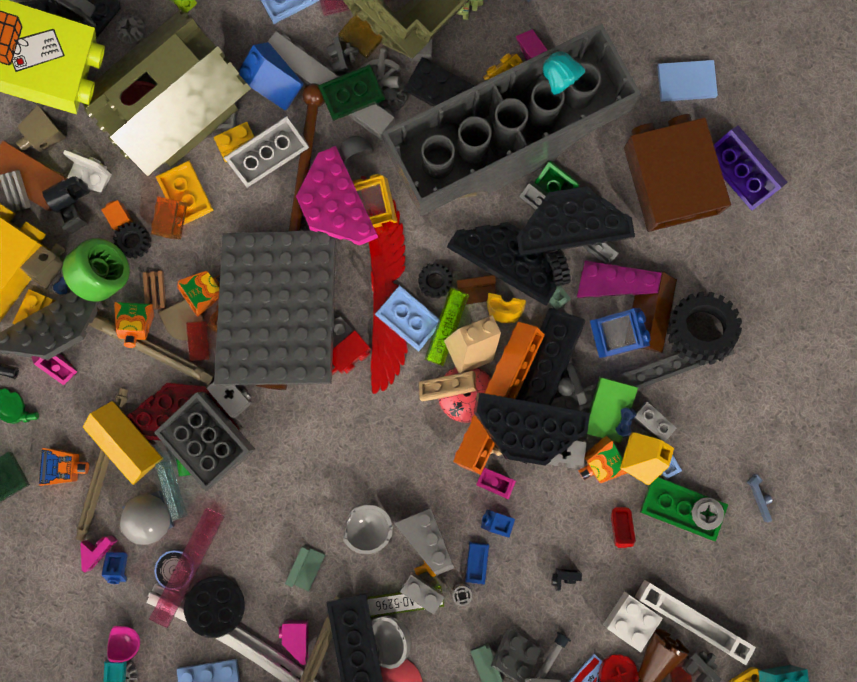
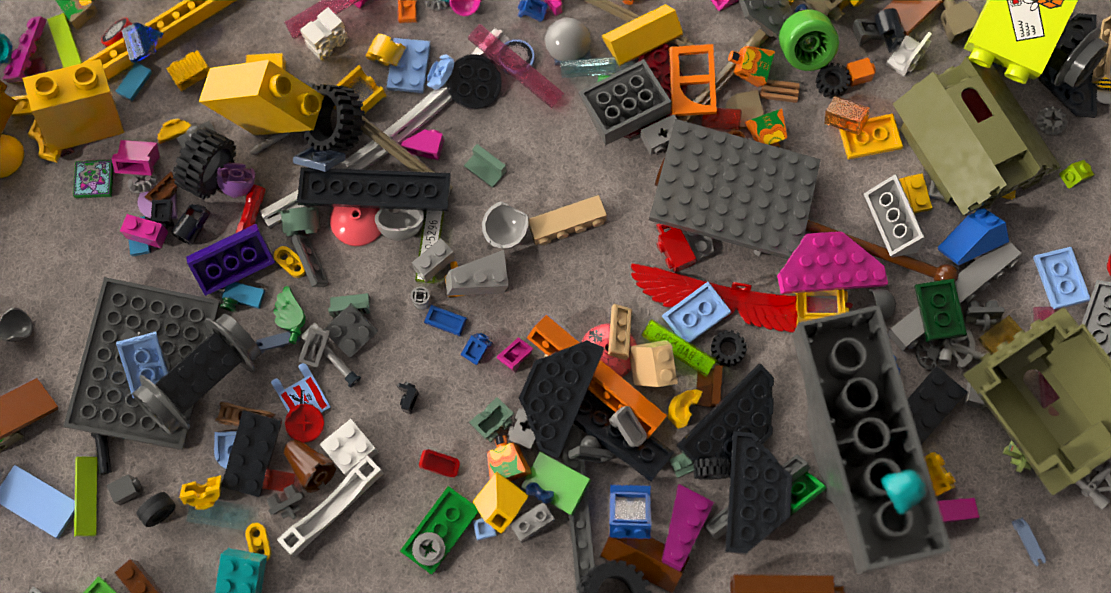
camera: 105 degrees right, 10 degrees down
(192, 384) = (680, 103): none -> orange window
(212, 646) = (440, 72): none -> light blue tile
(344, 468) = (567, 220): none -> tan brick
(541, 353) = (629, 426): none -> light grey piece
(566, 488) = (492, 420): none -> sand green cylinder

